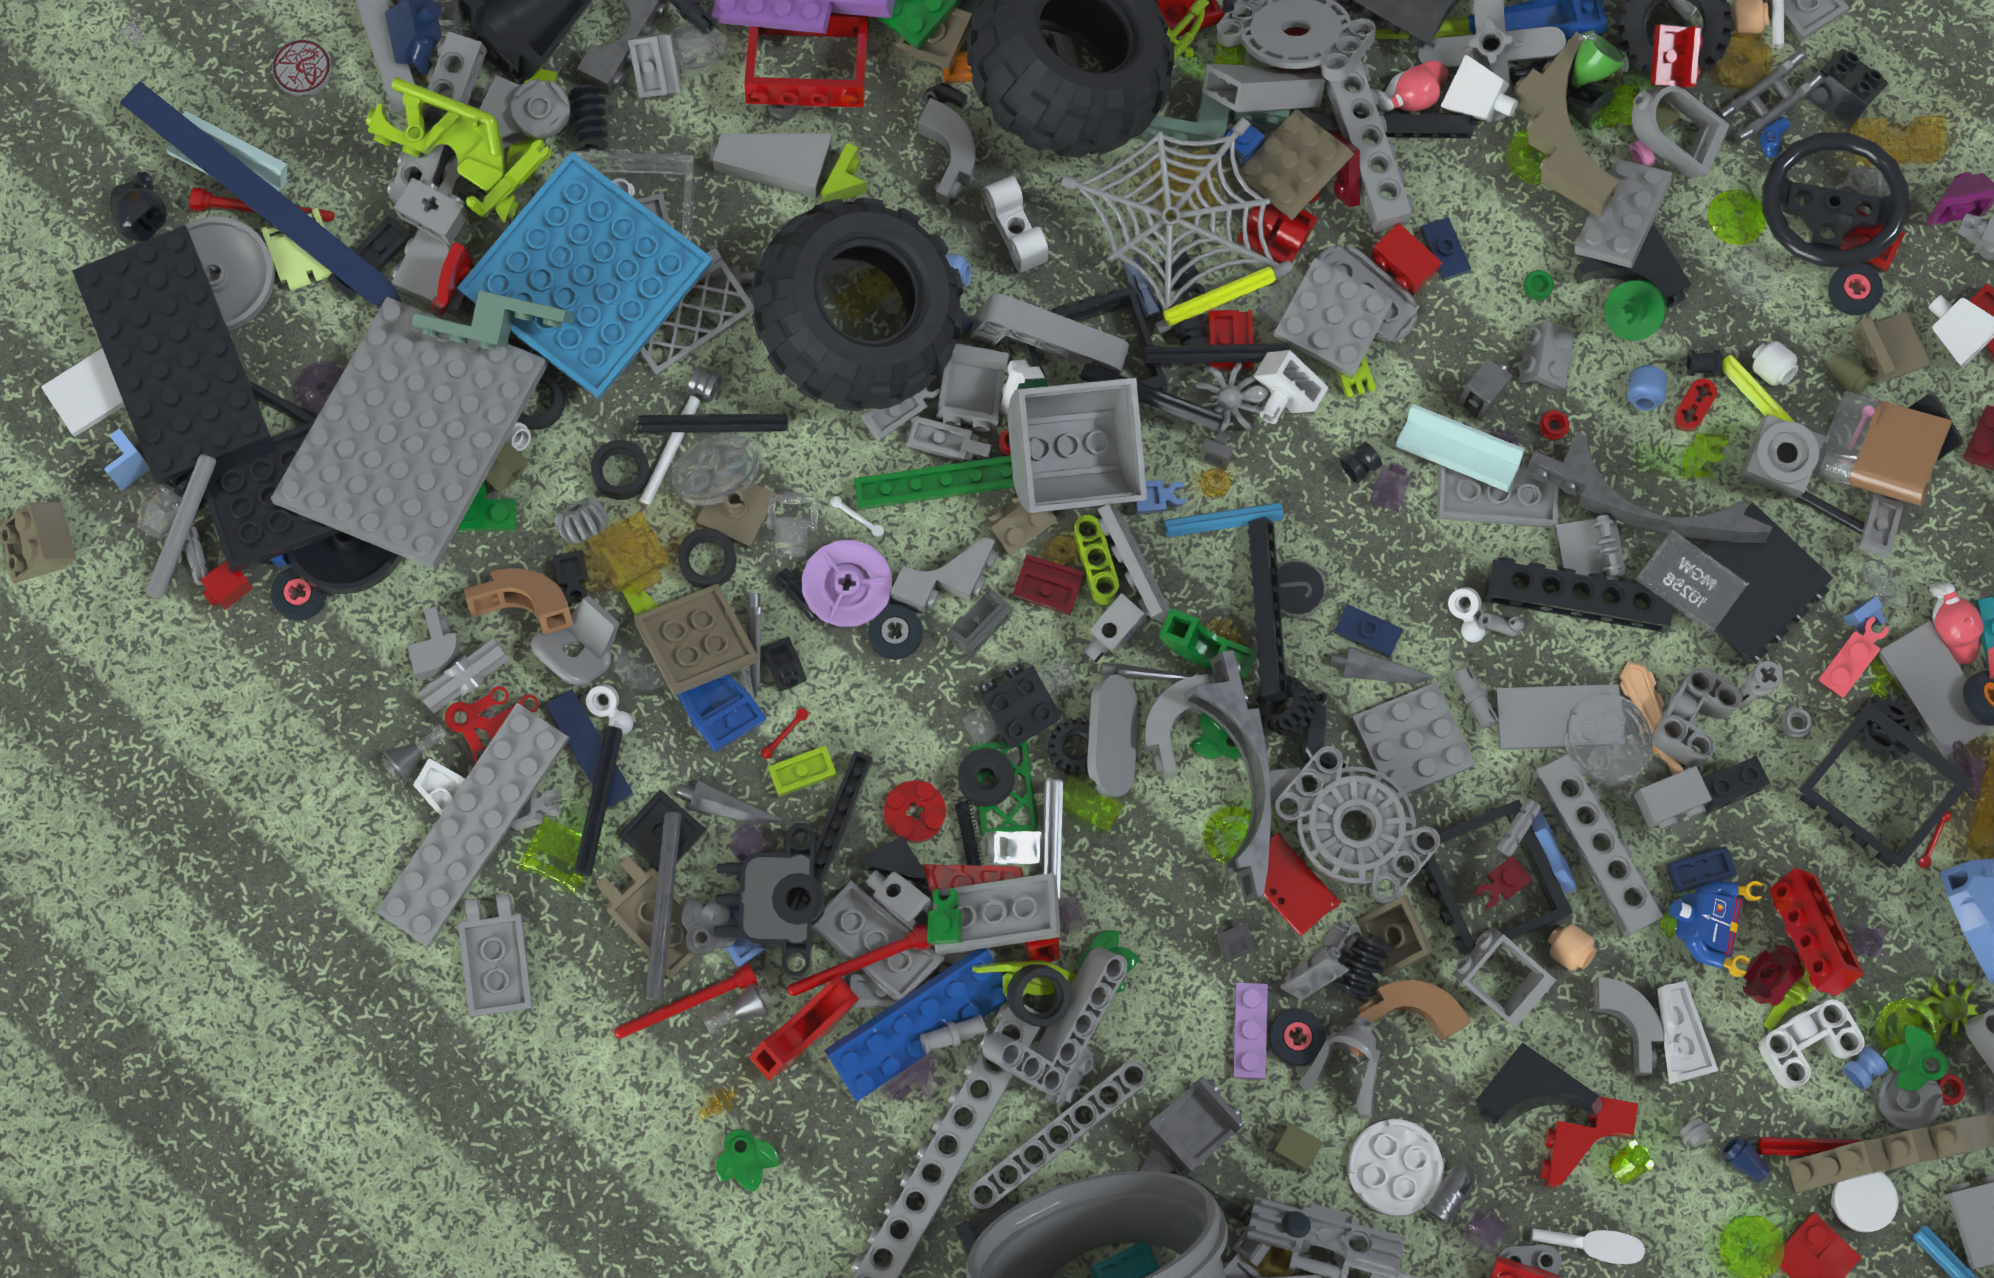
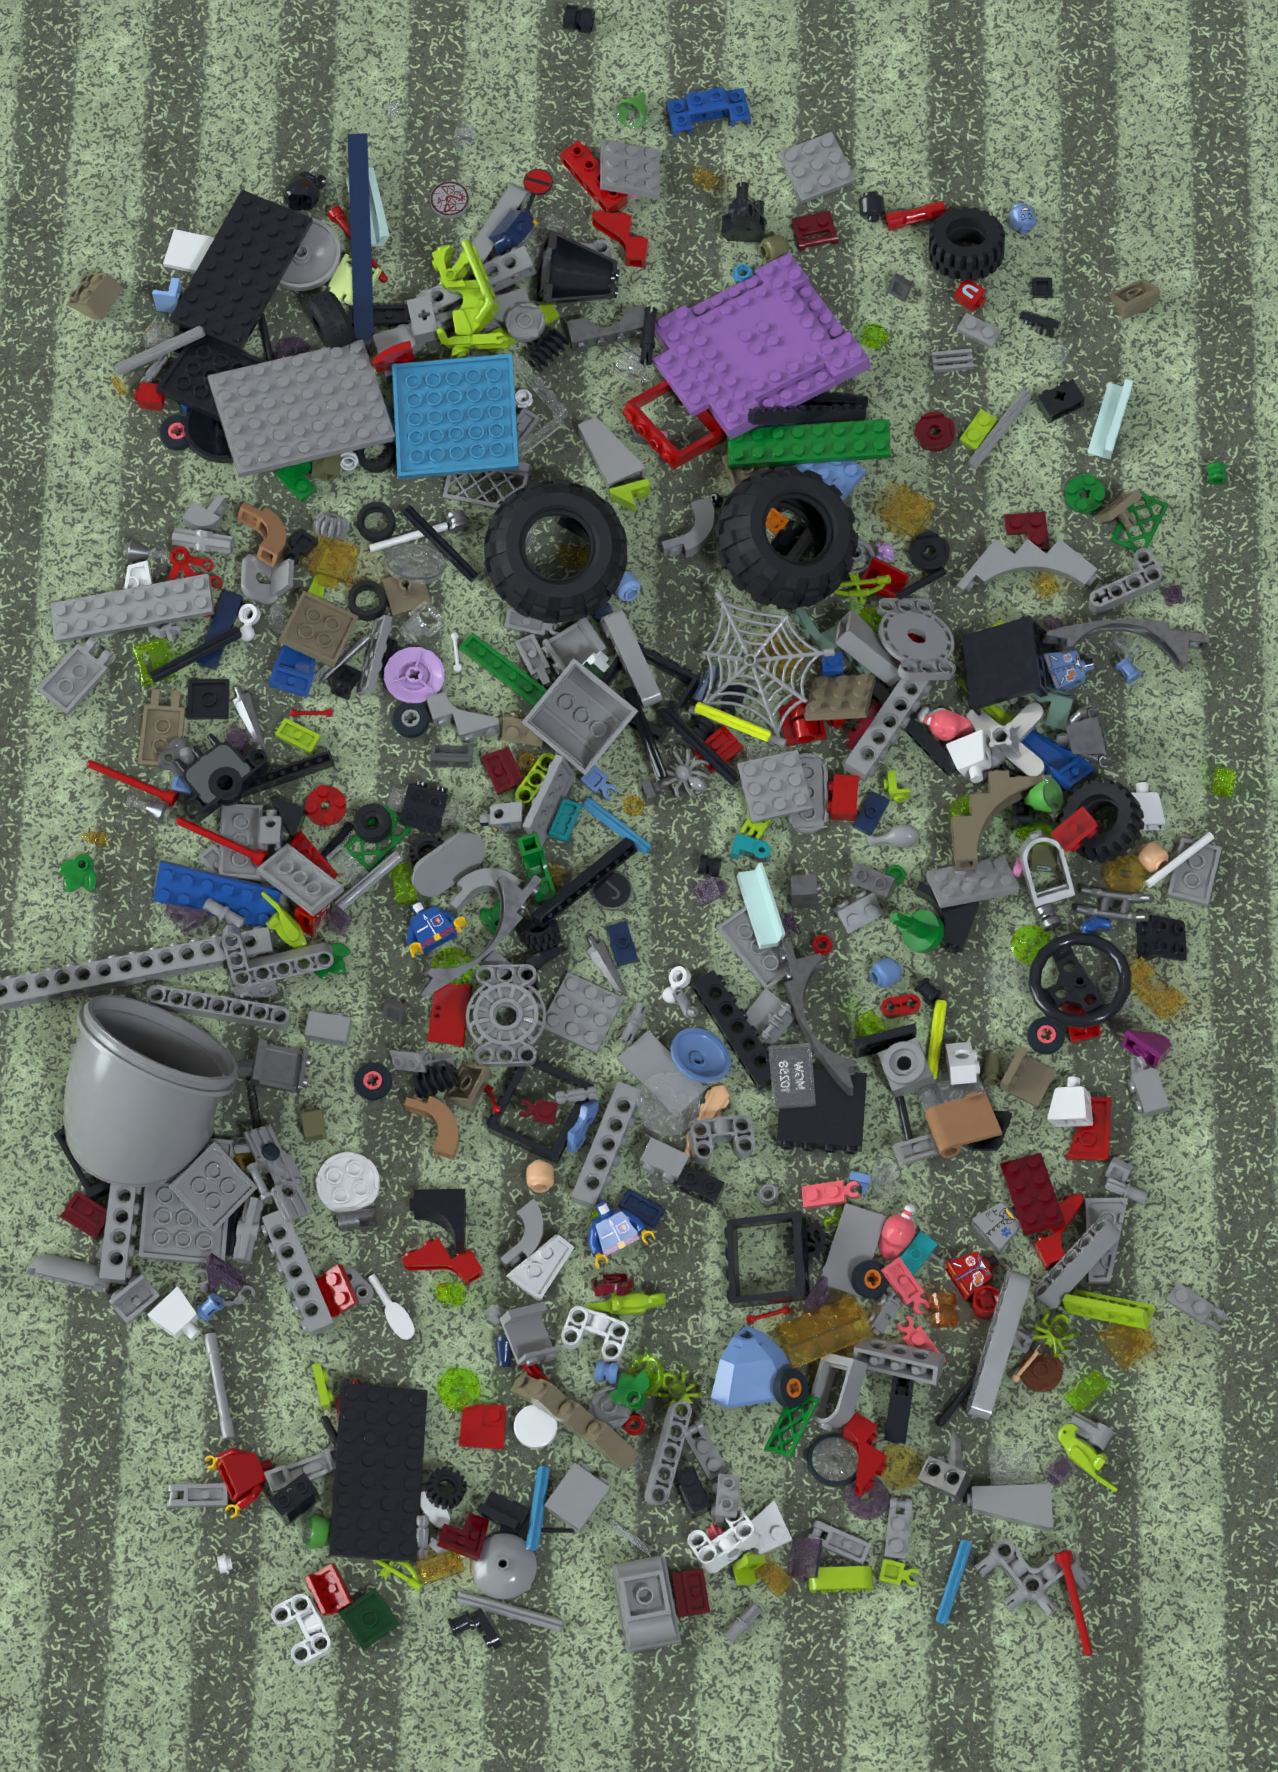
camera: 55 degrees right, 5 degrees down
(177, 608) = (119, 385): none -> clear yellow tile
(331, 310) = (330, 320): none -> black tyre
(492, 320) = (389, 393): sand green bracket -> none
(655, 65) = (604, 355): light grey plate -> none
(663, 905) = (169, 727): flat silver axle -> none
(782, 606) = (373, 660): none -> light grey plate
(804, 1028) = (169, 844): red arch -> none
(945, 922) = (276, 859): green plate -> none
(1005, 208) = (686, 583): white beam -> none
(1059, 1005) = (277, 949): black tyre -> none
(1140, 672) = (488, 841): flat silver bar -> none
(1168, 568) = (565, 820): none -> teal plate
(1173, 819) = (431, 928): none -> blue torso
(1191, 1033) = (328, 1028): none -> light grey brick
(1250, 1031) = (356, 1056): lavender plate -> none
(1290, 385) = (715, 794): white brick -> none
(1355, 1041) = (393, 1111): light grey piece -> none
(1376, 403) = (751, 848): none -> teal leg
(1436, 201) = (895, 794): none -> lime bracket
(1460, 928) = (488, 1089): none -> red hinge
(1484, 1231) = (350, 1250): clear purple brick -> none
(1499, 243) = (899, 836): none -> light grey piece
(1524, 996) = (472, 1152): light grey window -> none
(1532, 310) = (873, 880): none -> flat silver brick
(1581, 657) = (700, 1055): none -> medium blue dish
(1719, 171) = (1048, 917): none -> flat silver wheel
(1732, 453) = (883, 1040): none -> black tile
(1756, 686) = (760, 1147): light grey pin -> none
(1757, 1119) = (528, 1335): none -> light grey panel
(1775, 363) = (961, 1026): white head -> none
(1815, 932) = (651, 1282): red brick -> none
(1824, 397) = (961, 1063): none -> white brick
(1862, 947) = (685, 1323): clear purple plate -> none

